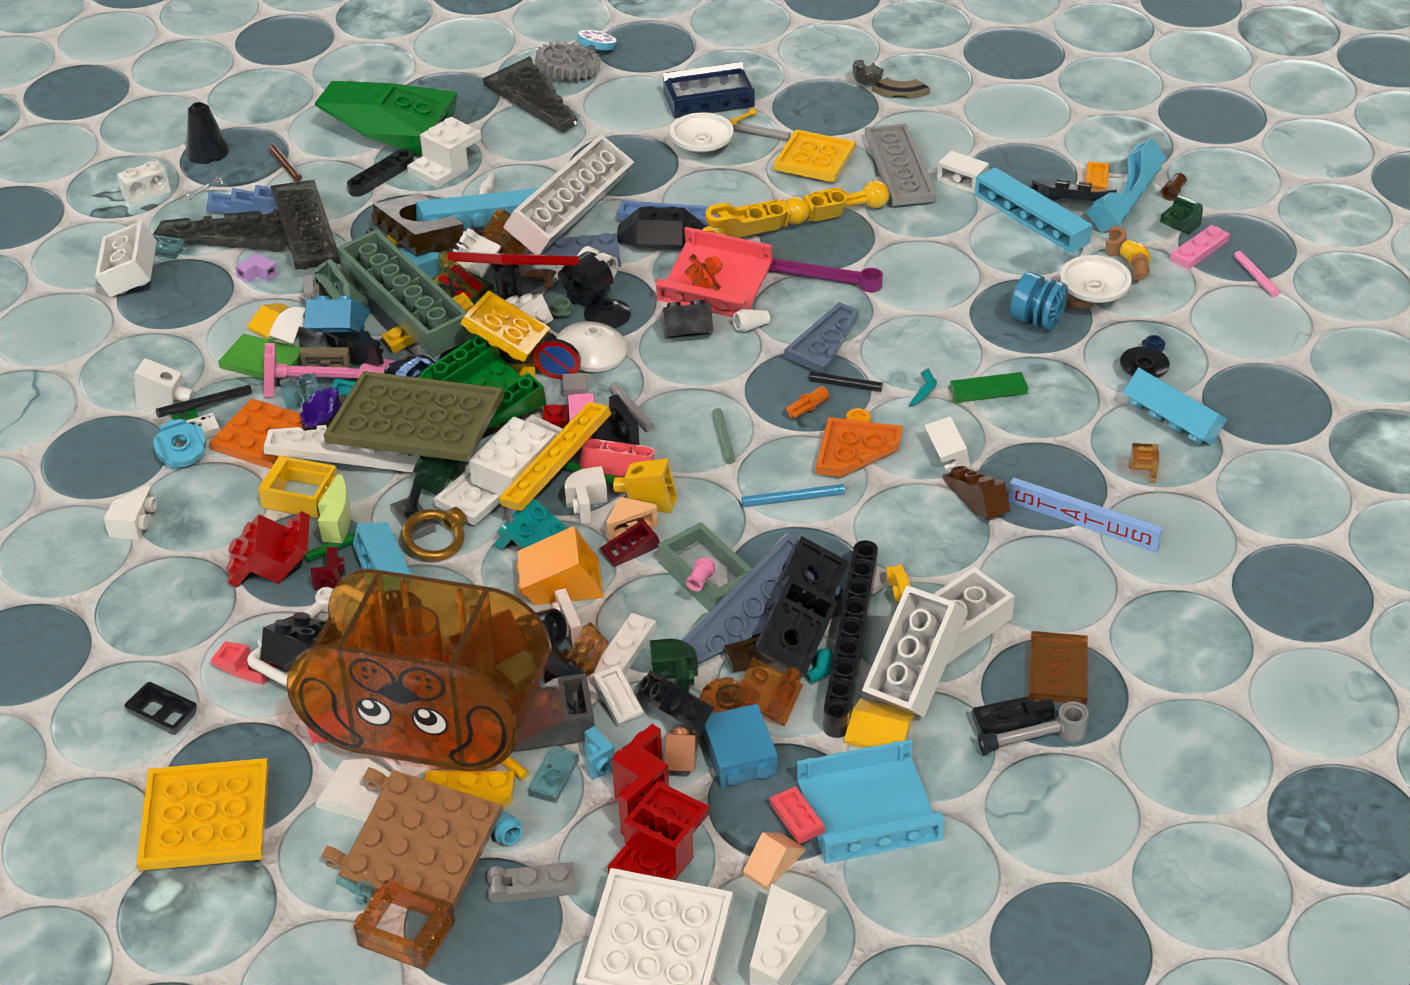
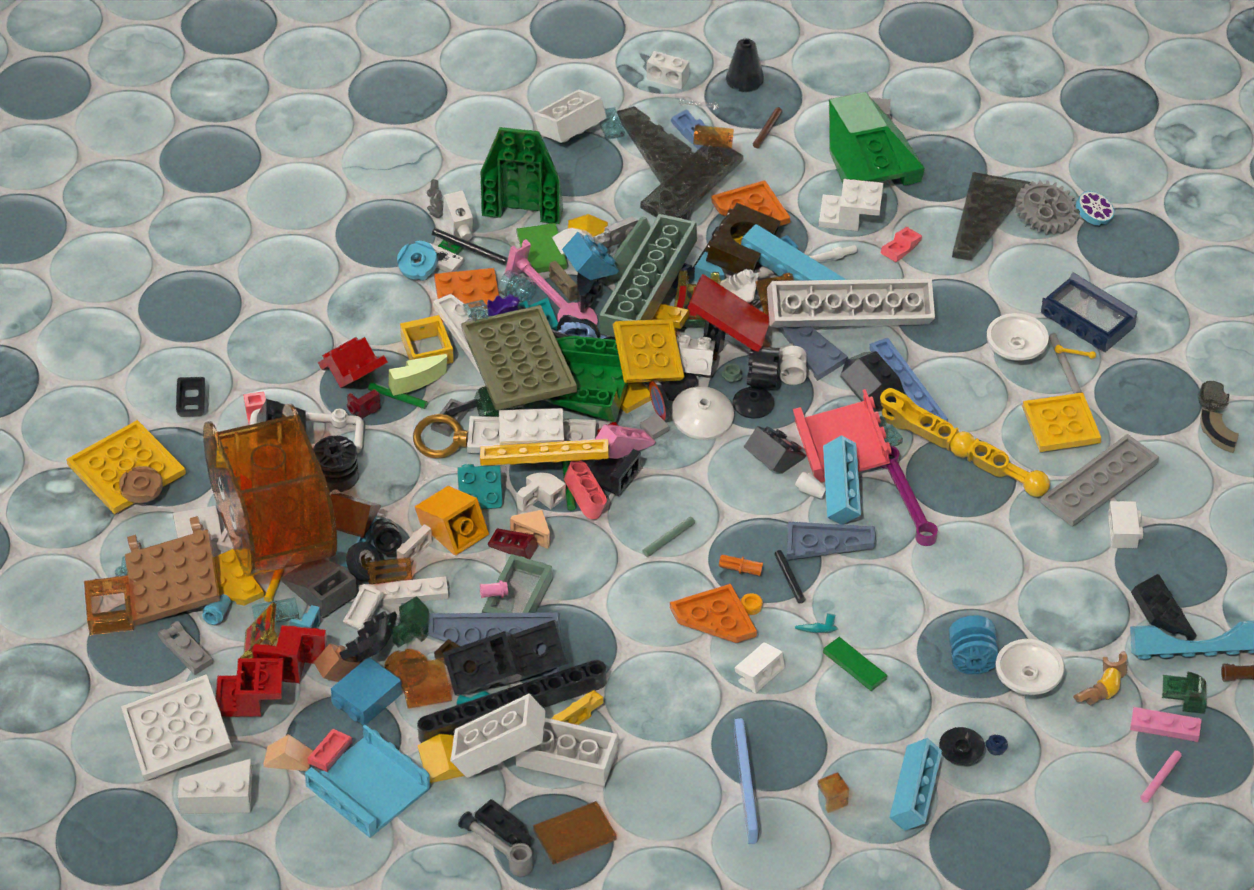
camera: 55 degrees right, 5 degrees up
(117, 403) = (436, 204): none -> dark grey animal
(130, 514) = (337, 278): white slope -> none
(189, 301) = (520, 176): none -> green wedge
(253, 807) = (140, 484): none -> medium nougat tile
(256, 266) = (630, 185): lavender piece -> none
(277, 180) = (713, 136): none -> clear orange hinge
(316, 417) = (476, 310): none -> clear light blue plate
(358, 207) = (755, 196): none -> orange plate
(378, 548) = (391, 422): medium azure brick -> none
(380, 172) = (832, 185): black beam -> none
(516, 151) = (902, 244): none -> coral slope
(584, 792) = (259, 630): none -> clear yellow flag
(633, 408) = (657, 470): light grey bar -> none
(649, 483) = (568, 513): yellow torso -> none
(703, 273) = (824, 427): clear orange hips -> none
(773, 292) = (841, 480): none -> medium azure brick
(793, 495) = (635, 605): dark azure bar -> none
(980, 492) = (720, 707): reddish brown slope -> none
(1033, 210) = (1110, 592): medium azure brick -> none
(1097, 174) = (1208, 615): light orange tile -> none

